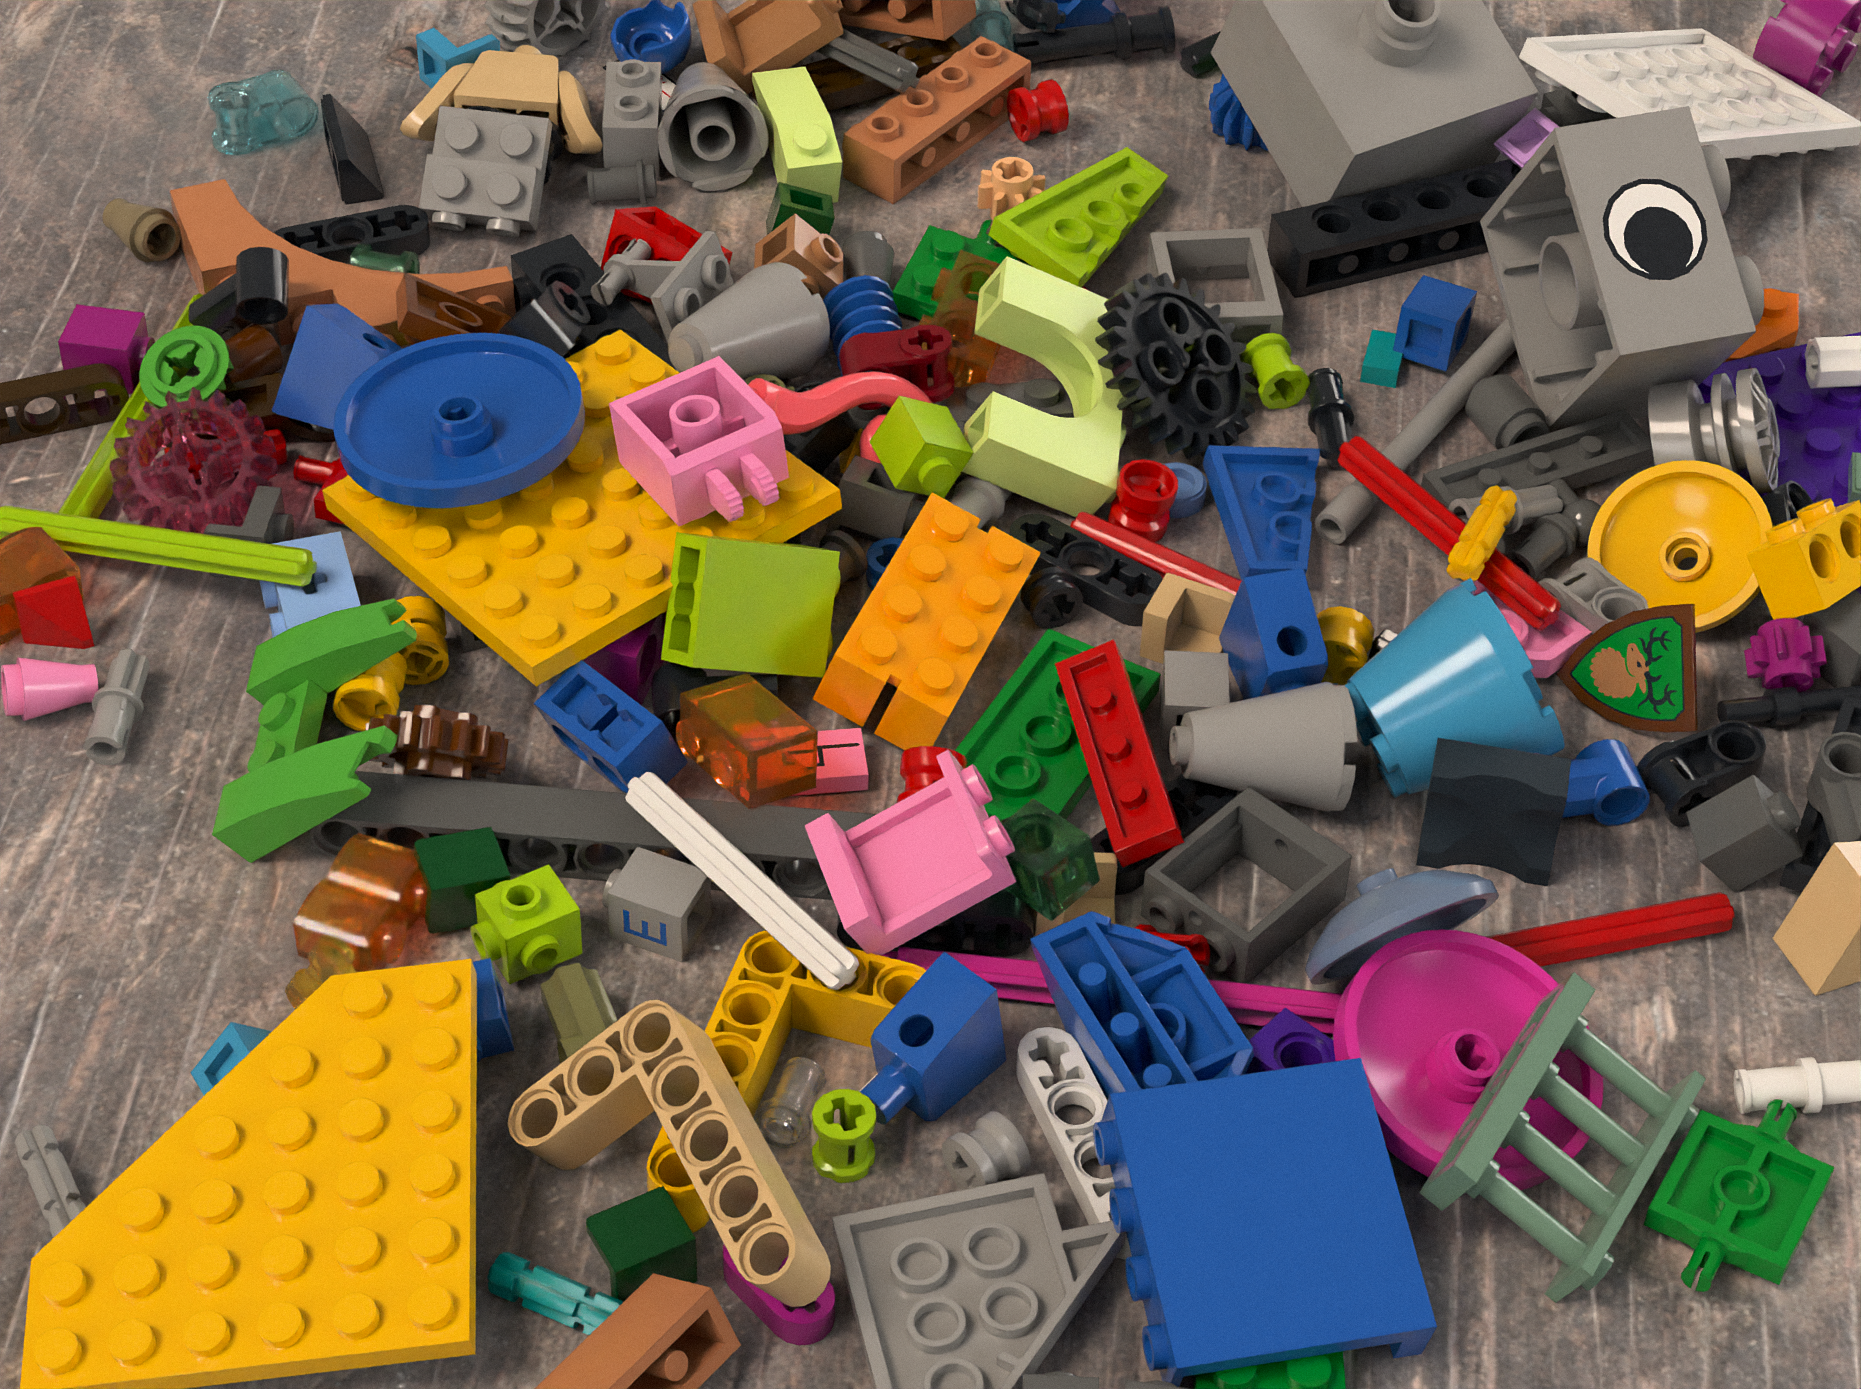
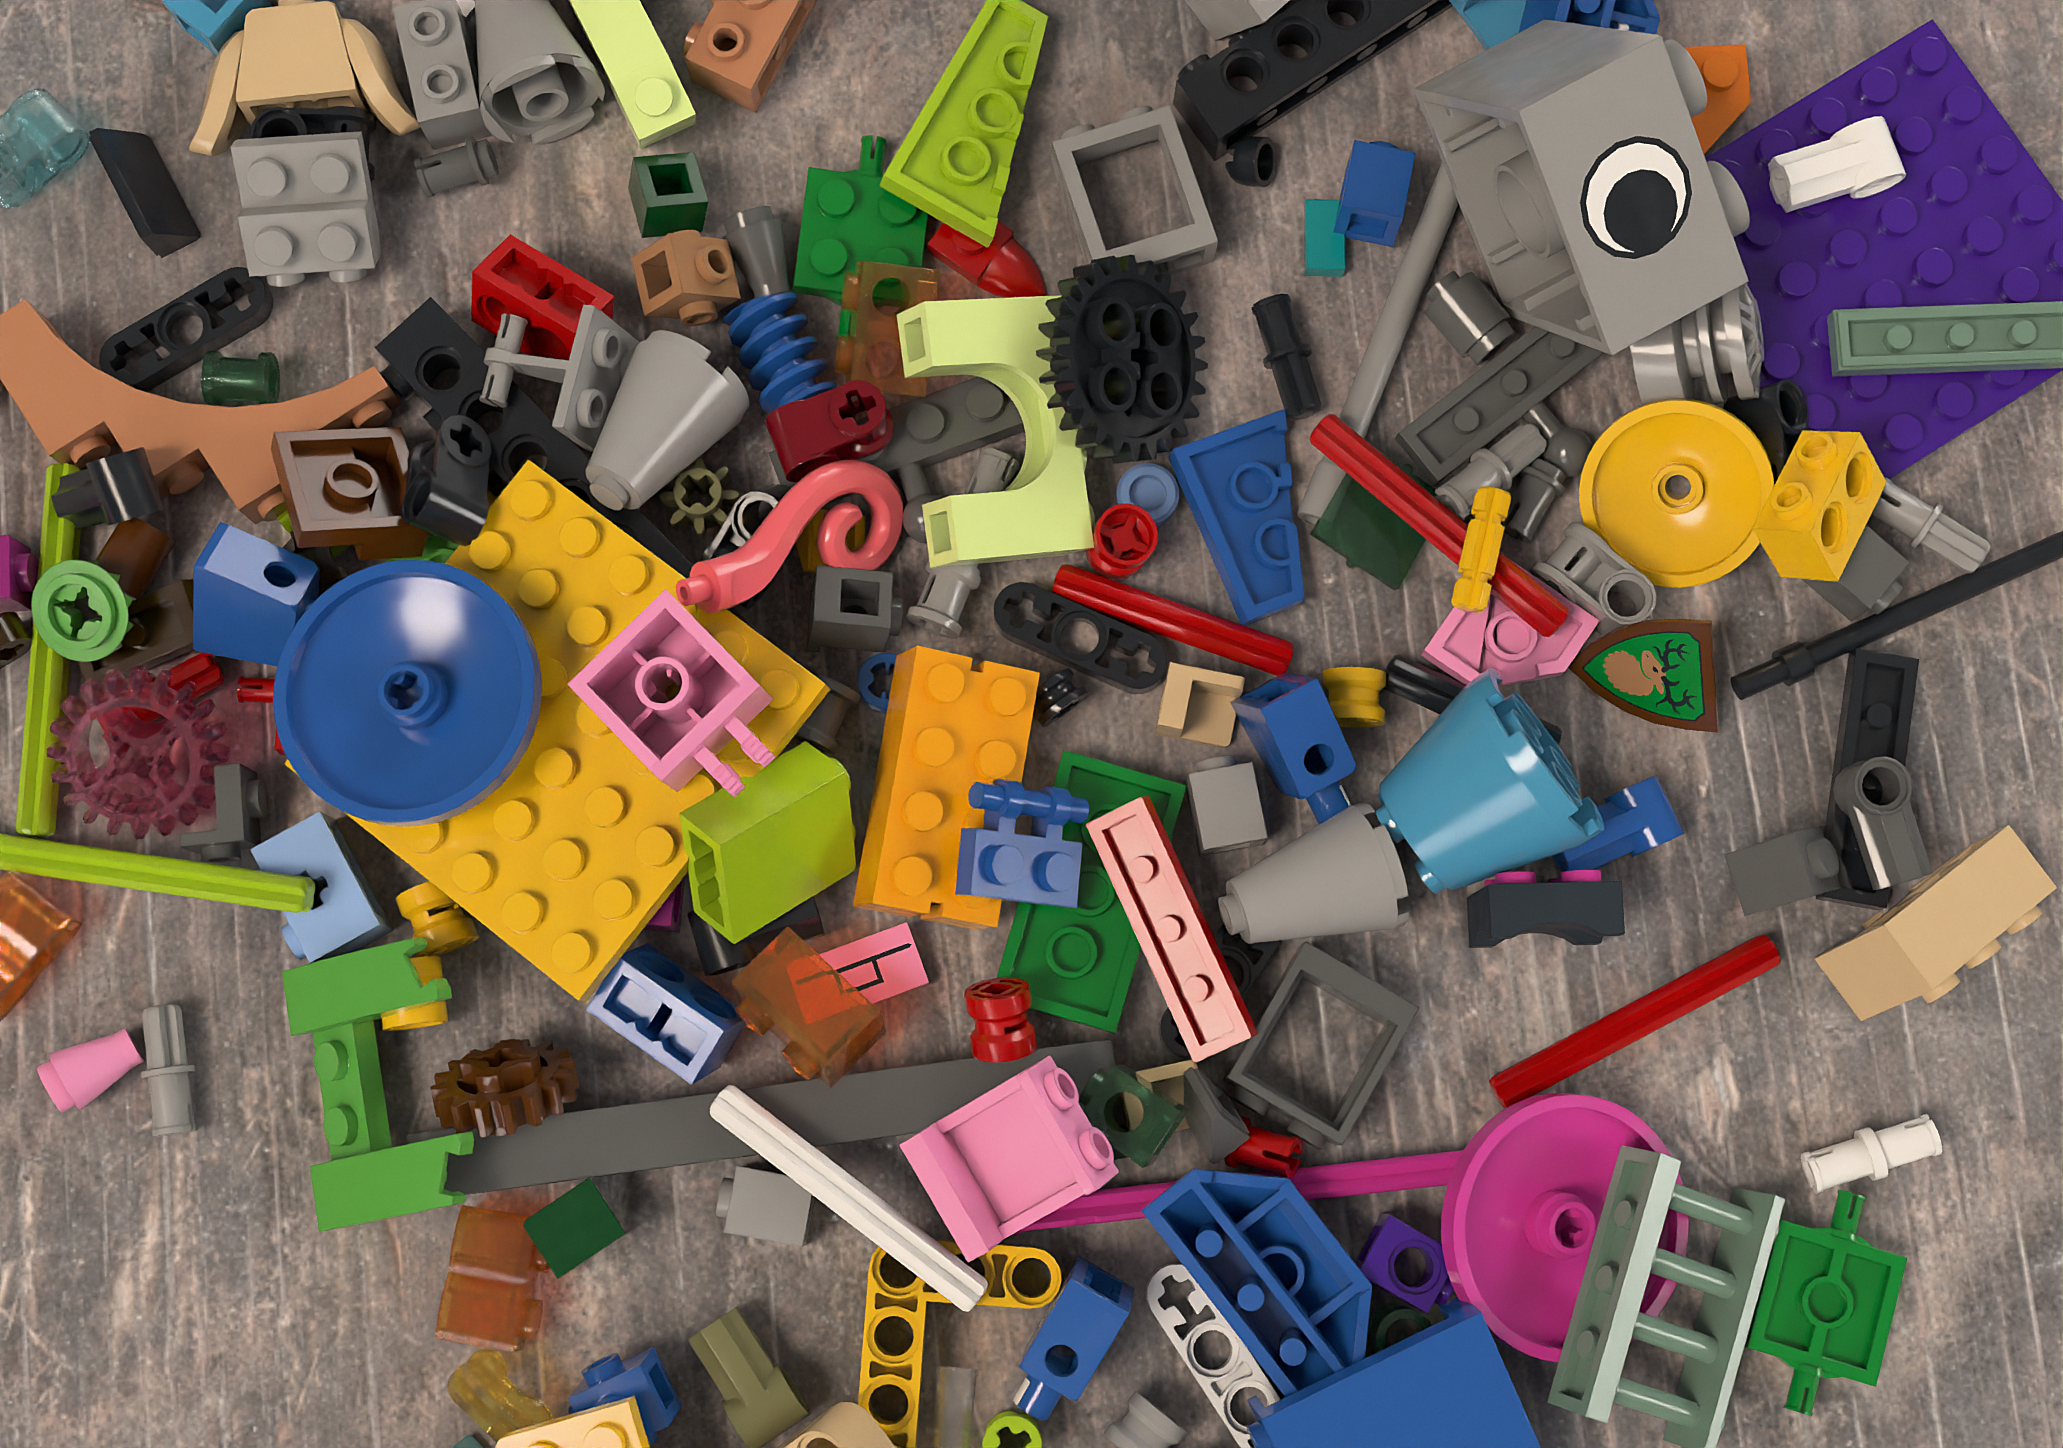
camera: 15 degrees left, 35 degrees up
(53, 615) = (65, 968): red slope -> none
(527, 924) = (678, 1268): lime brick -> none
(921, 447) = (887, 560): lime brick -> none
(980, 664) = (1019, 866): none -> blue plate
(1008, 185) = (872, 74): light nougat gear -> none
(1122, 895) = (1212, 1116): none -> dark grey slope
(1279, 379) = (1218, 304): lime bush -> none
(1328, 292) = (1252, 161): none -> black hinge
(1383, 541) = (1370, 532): none -> clear green piece
(1393, 909) = (1486, 1113): sand blue dish -> none
(1702, 766) = (1724, 791): black piece -> none
(1785, 655) = (1793, 611): magenta gear -> none

